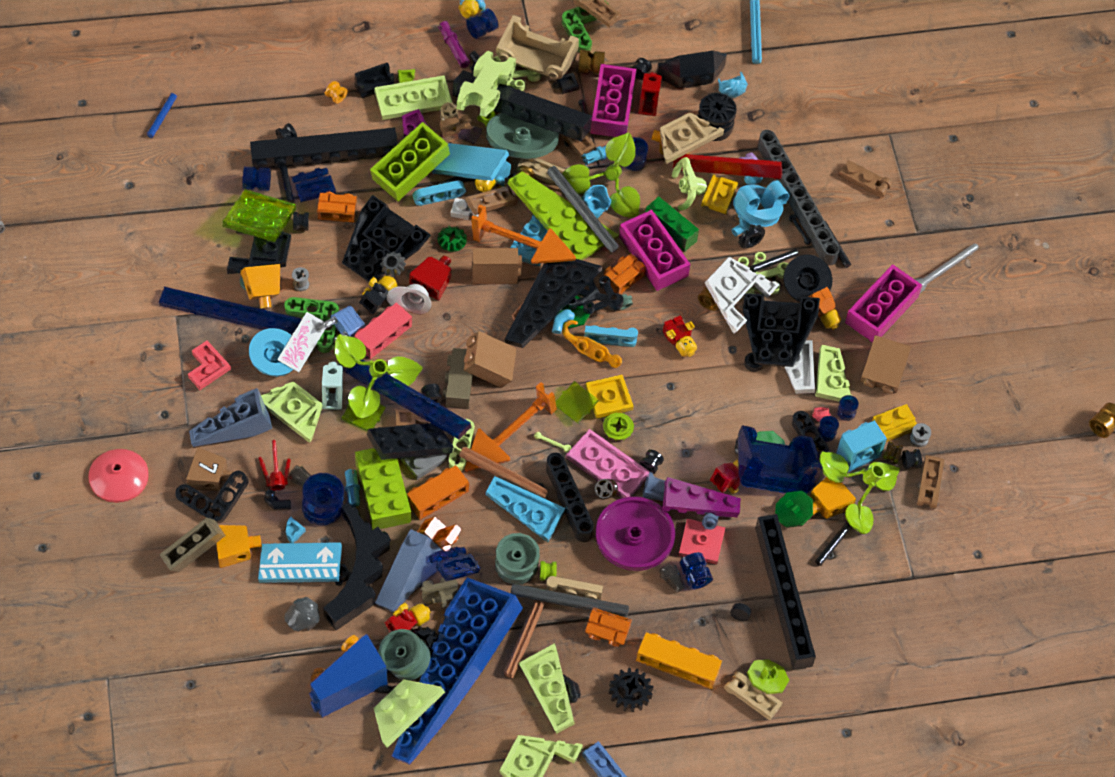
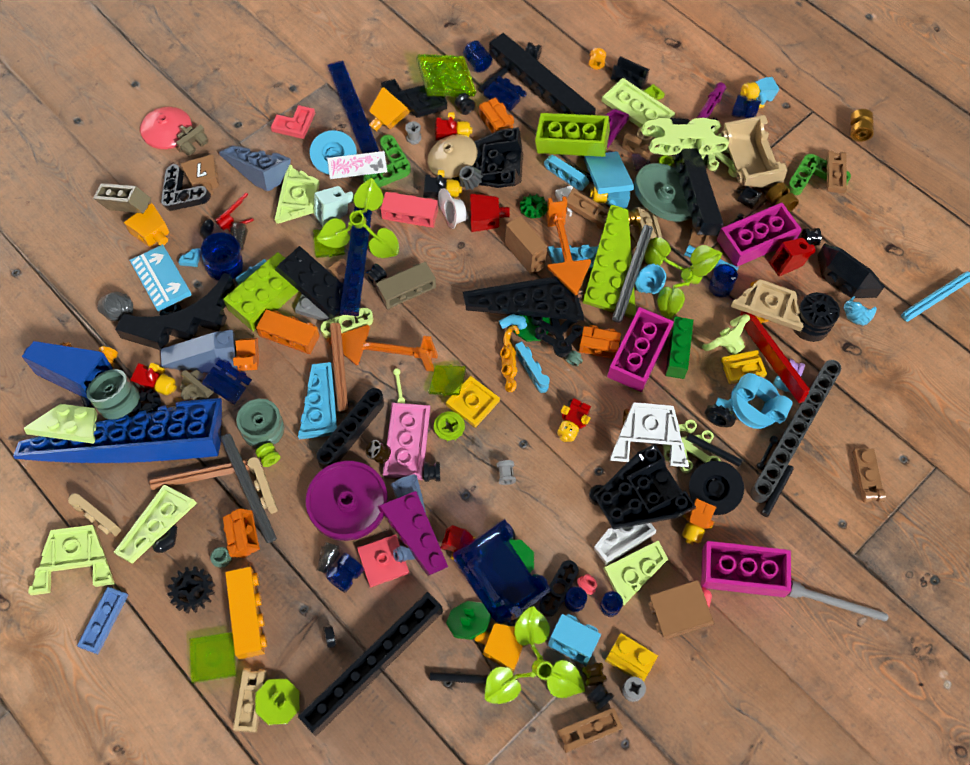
camera: 60 degrees right, 5 degrees up
(153, 457) = (188, 137): none -> dark tan hips
(324, 244) = (449, 127): none -> red piece
(346, 322) = (397, 181): medium blue piece -> none
(354, 275) = (452, 155): none -> tan dish
(490, 359) = (434, 291): medium nougat brick -> none
(508, 730) = (93, 514): none -> tan plate
(615, 655) = (220, 557): none -> sand green plate
(690, 410) = (506, 472): none -> light grey bush
(698, 705) = (212, 657): none -> clear neon green tile

